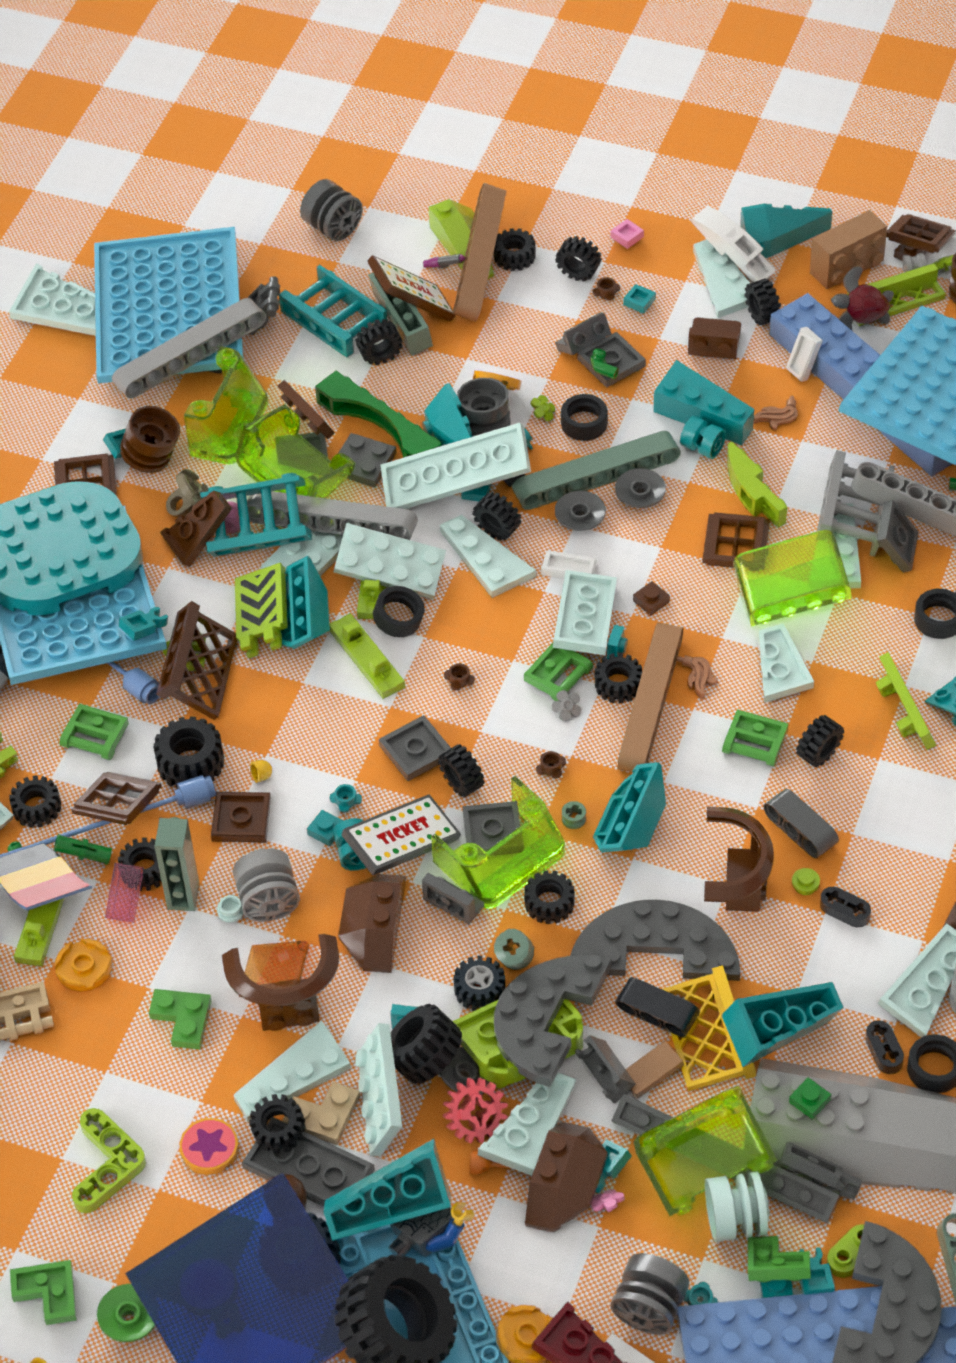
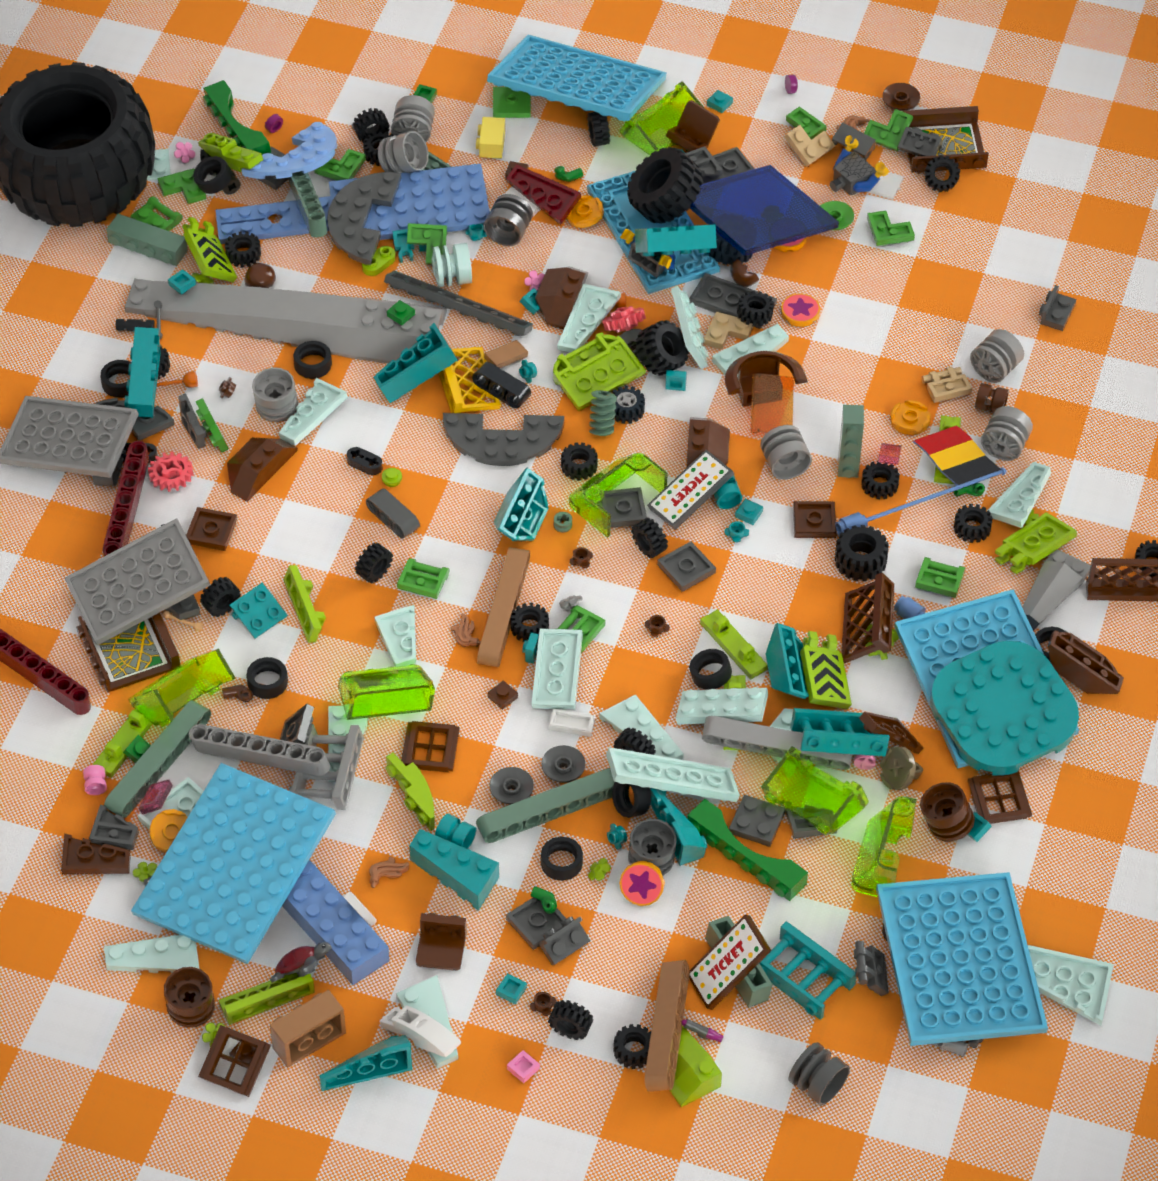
camera: 175 degrees right, 0 degrees up
(82, 849) = (927, 483): green pin -> none
(86, 808) = (902, 534): reddish brown piece -> none
(115, 1164) = (860, 301): lime beam -> none
(141, 625) = (917, 625): teal plate -> none
(187, 1011) = (832, 391): bright green plate -> none
(188, 348) = (926, 885): light grey beam -> none
(230, 909) = (814, 450): light aqua plate -> none
(260, 770) = (805, 548): yellow hinge -> none
(304, 410) = (816, 842): reddish brown wing -> none
(372, 334) = (761, 916): black tyre -> none
(451, 898) = (655, 450): dark grey bracket -> none
(531, 1005) = (590, 372): dark grey plate -> none
(606, 1068) = (536, 348): dark grey hinge -> none
(619, 1038) = (528, 371): none -> teal plate
(700, 1144) = (495, 292): clear neon green windscreen -> none
(745, 867) = (437, 463): reddish brown piece -> none
(761, 300) = (394, 970): black tyre -> none
(821, 1170) = (398, 291): dark grey hinge -> none
(879, 1049) = (348, 372): black beam -> none
(914, 262) = (245, 1024): light grey wheel -> none

